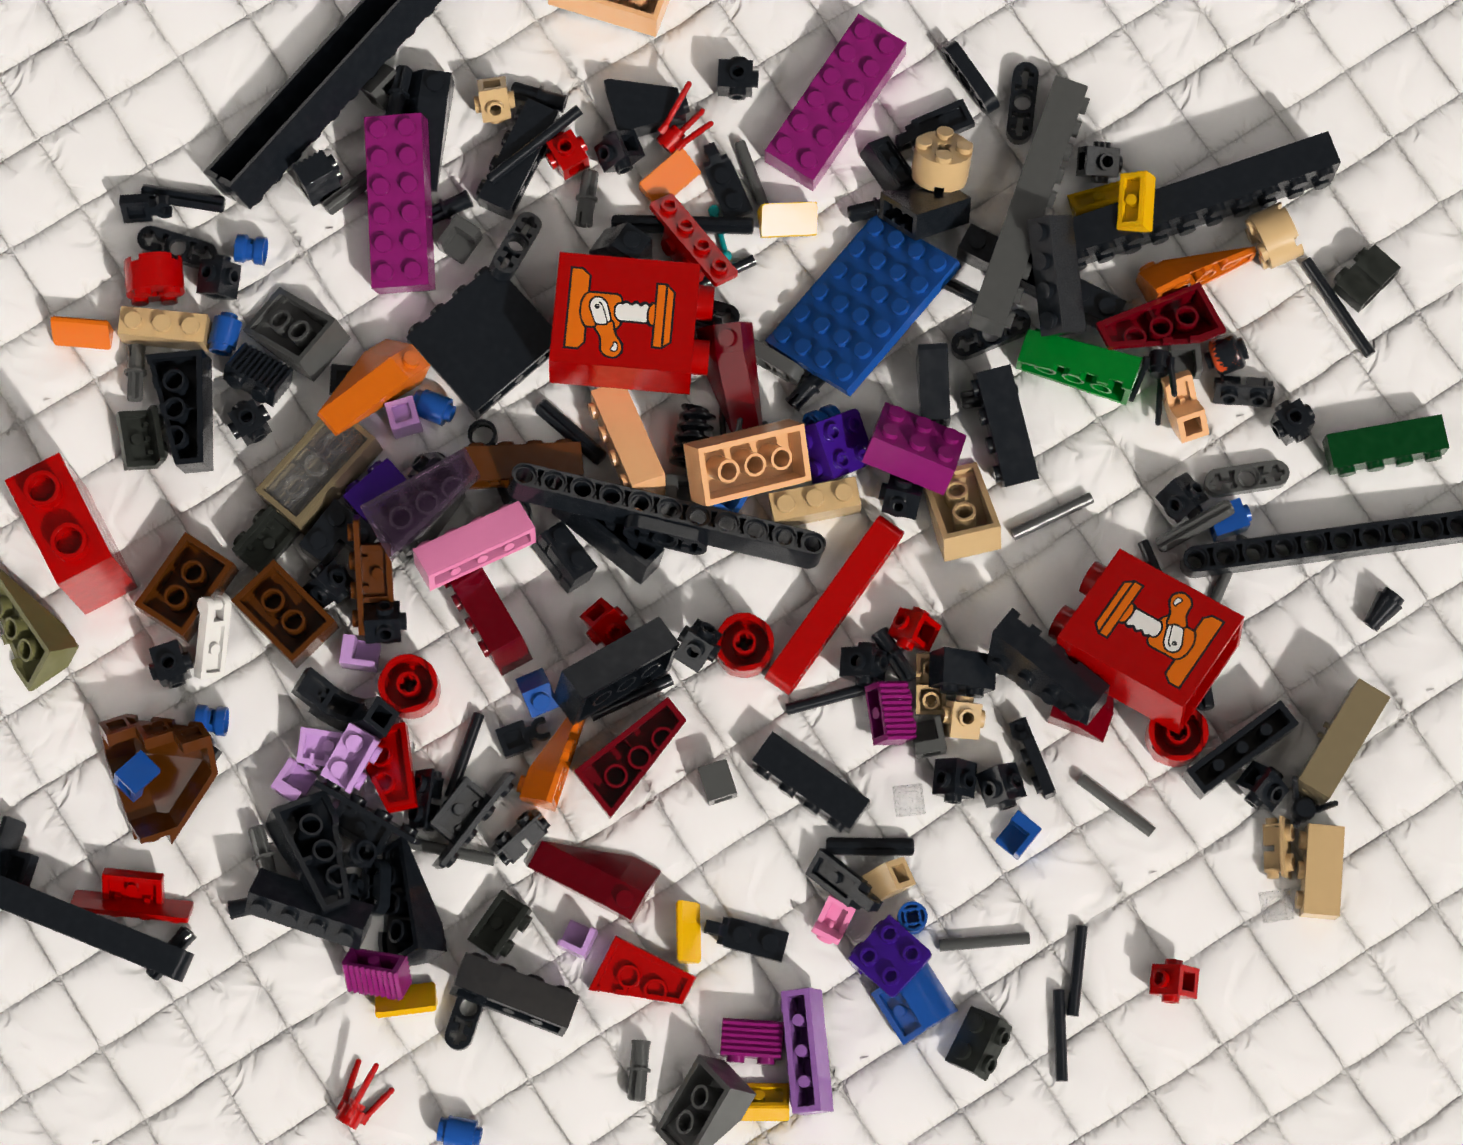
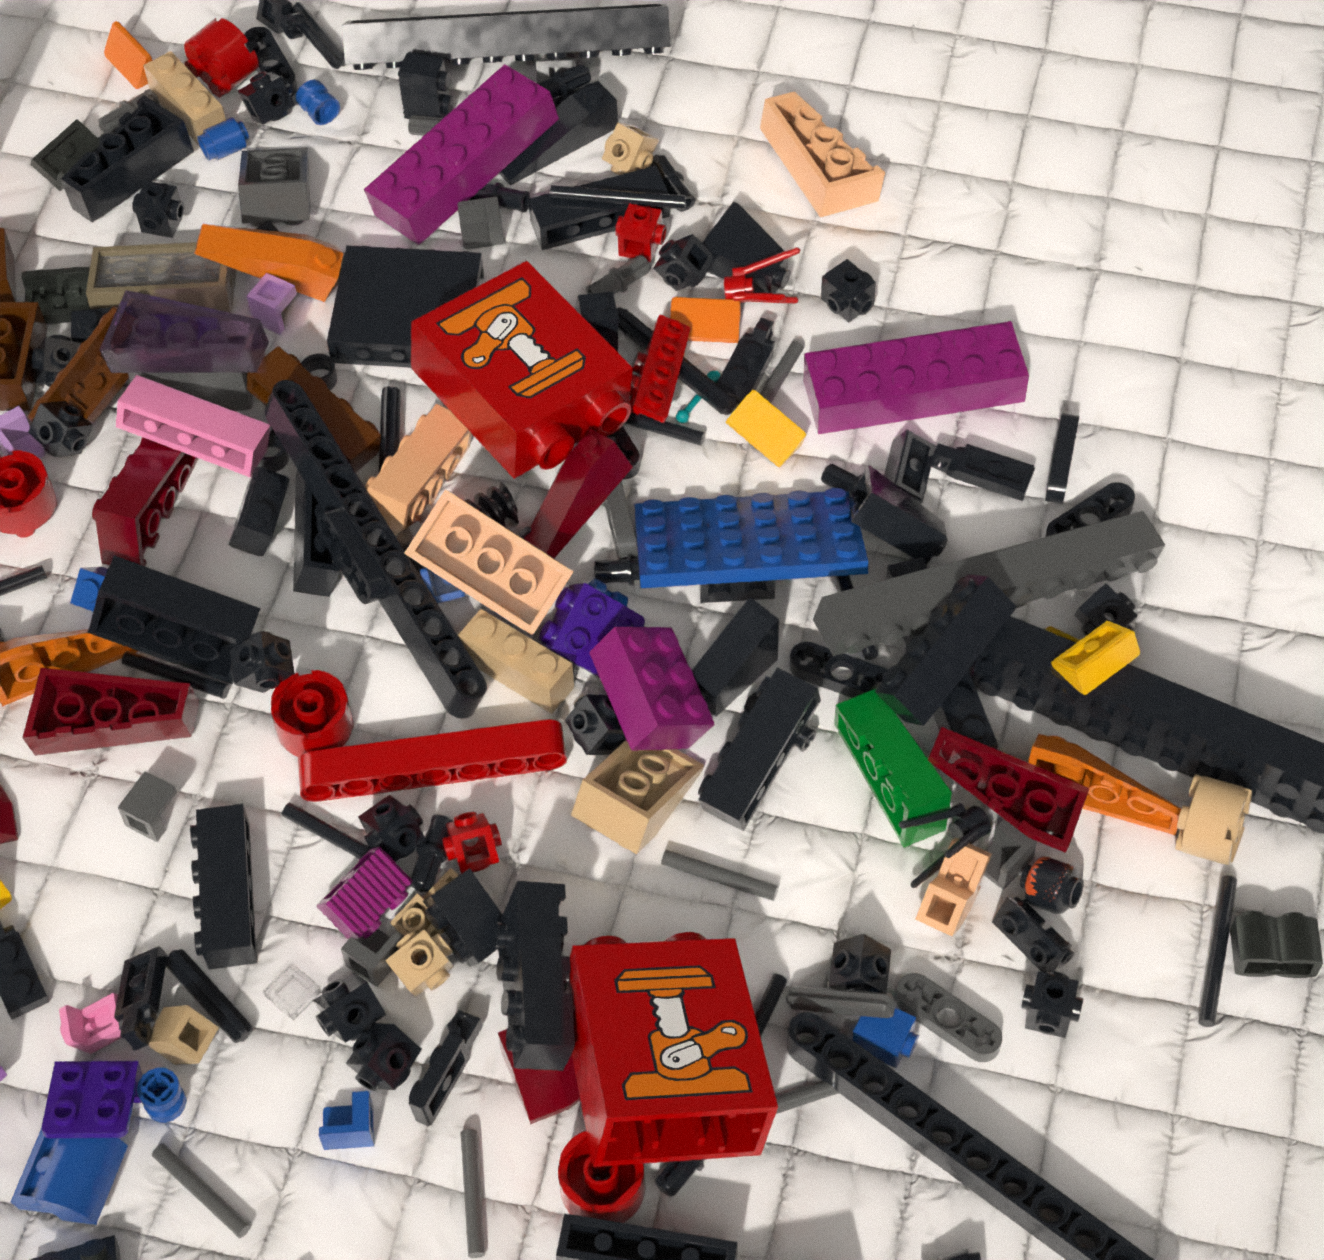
camera: 45 degrees right, 20 degrees down
(257, 374) = (207, 183): black brick -> none
(434, 406) = (306, 318): blue brick -> none
(515, 257) = (525, 250): black beam -> none
(517, 737) = (48, 614): black plate -> none
(604, 623) = (226, 580): red brick -> none
(941, 160) = (955, 488): tan brick -> none
(1385, 445) = (1129, 1117): dark green brick -> none

